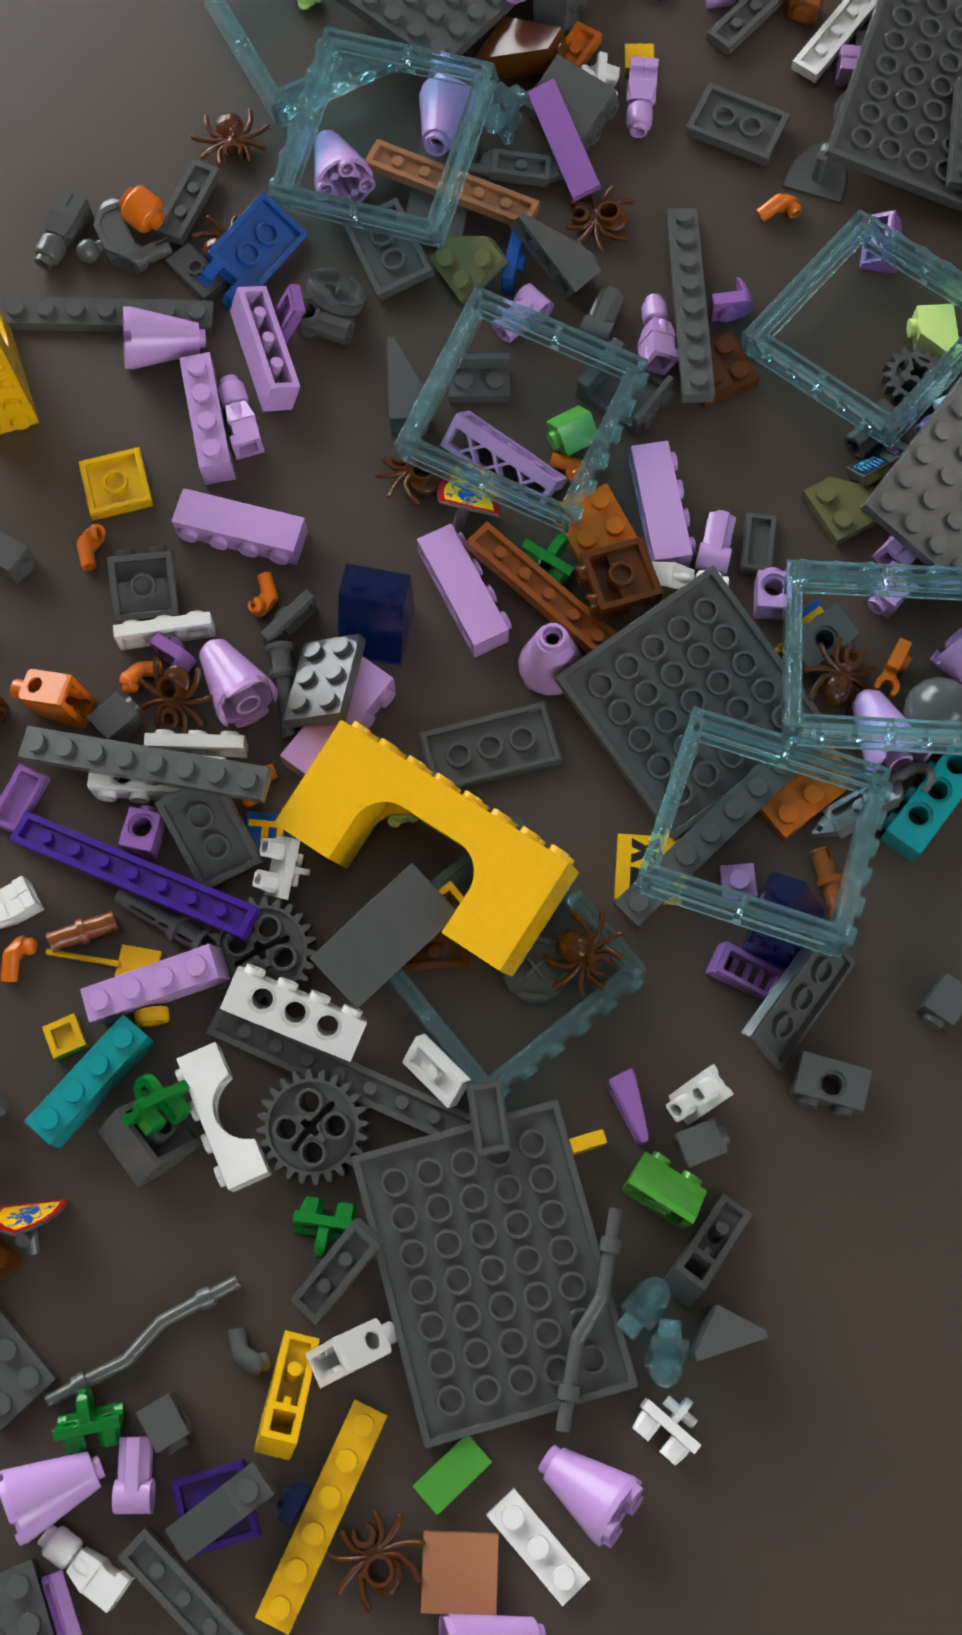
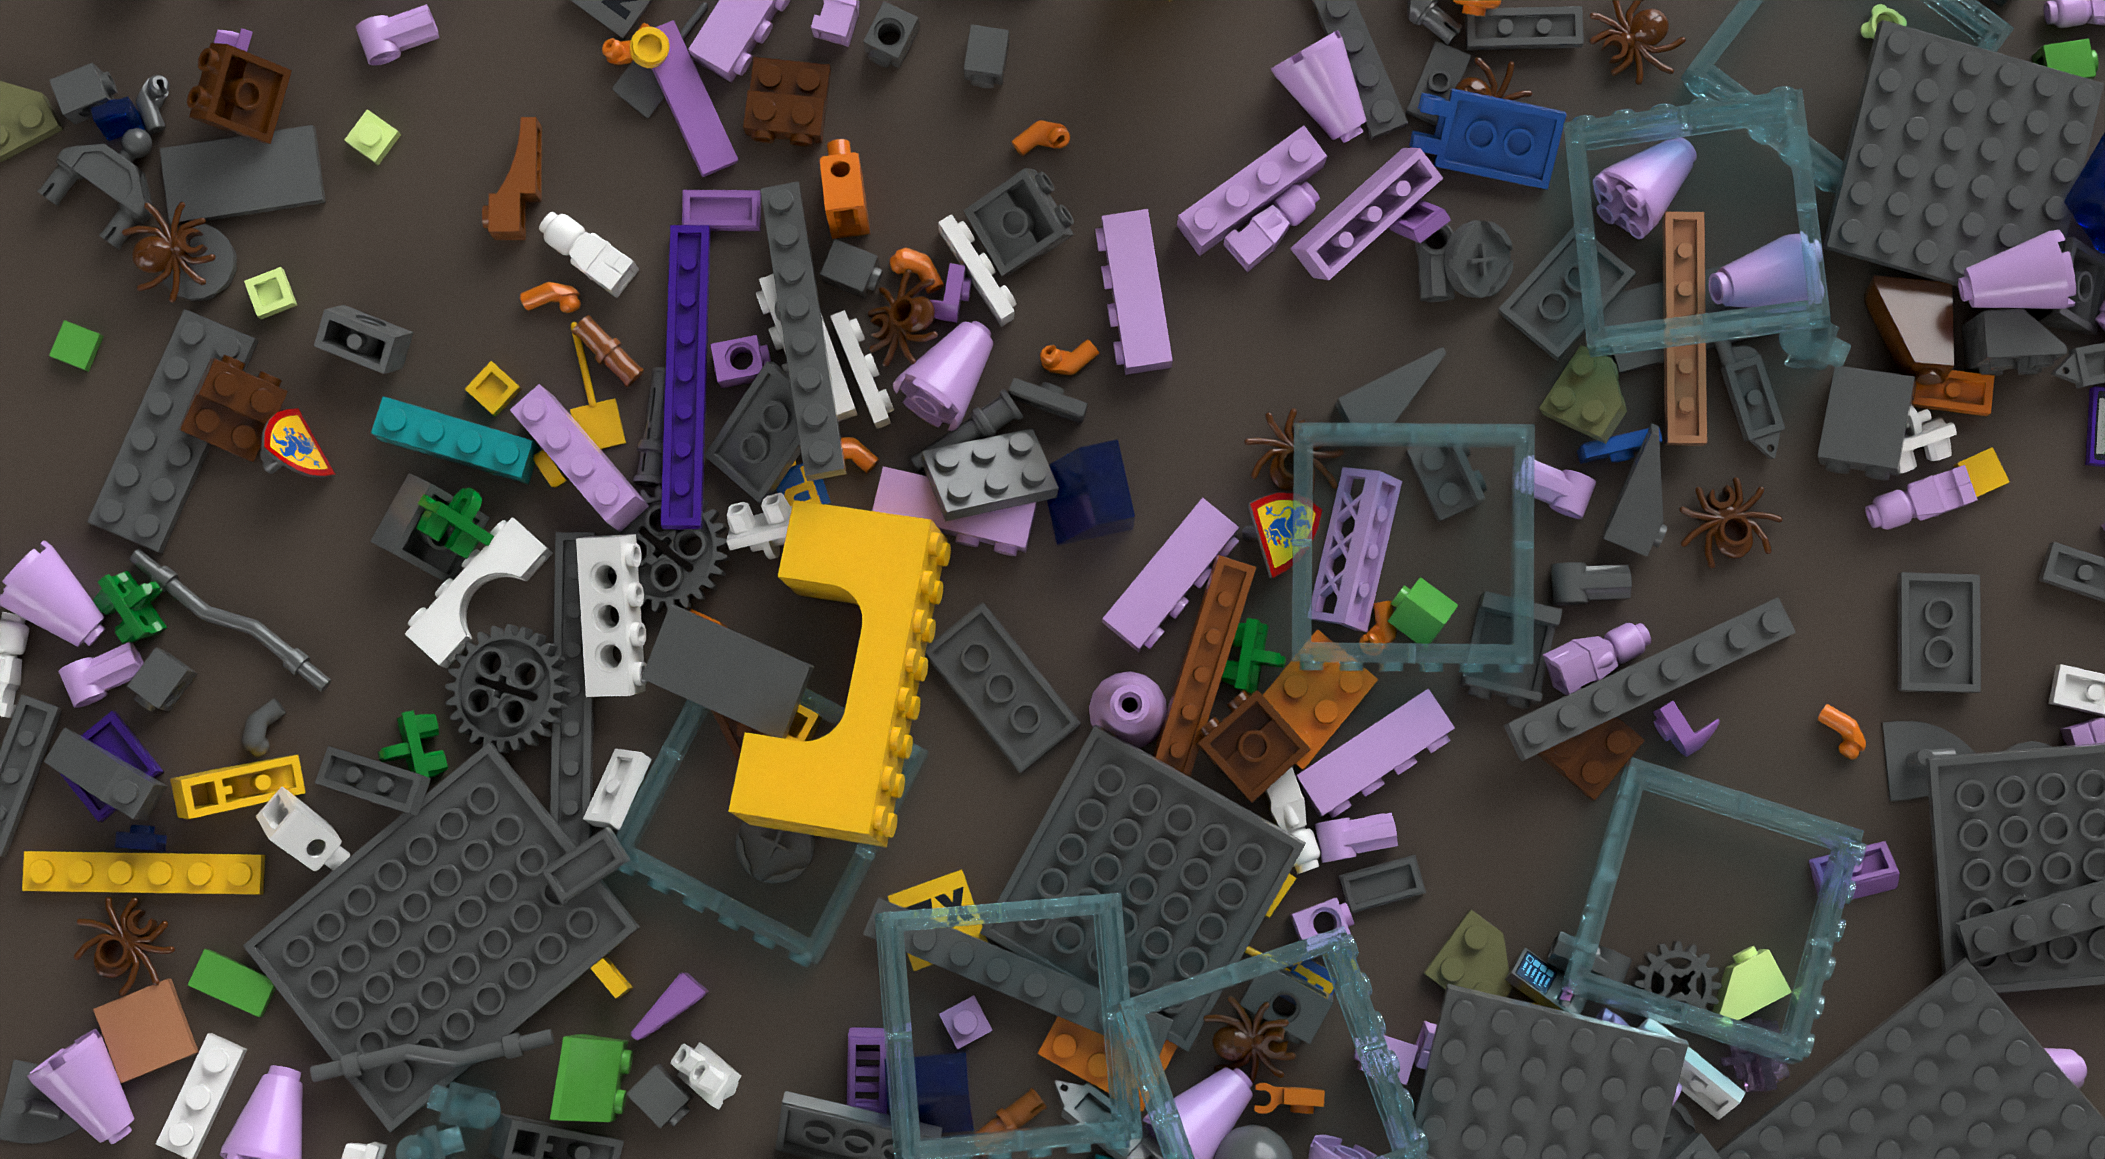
camera: 65 degrees right, 10 degrees up
(115, 483) = (1131, 126): yellow tile -> none
(564, 140) = (1805, 435): medium lavender tile -> none
(584, 953) = (806, 890): reddish brown animal -> none

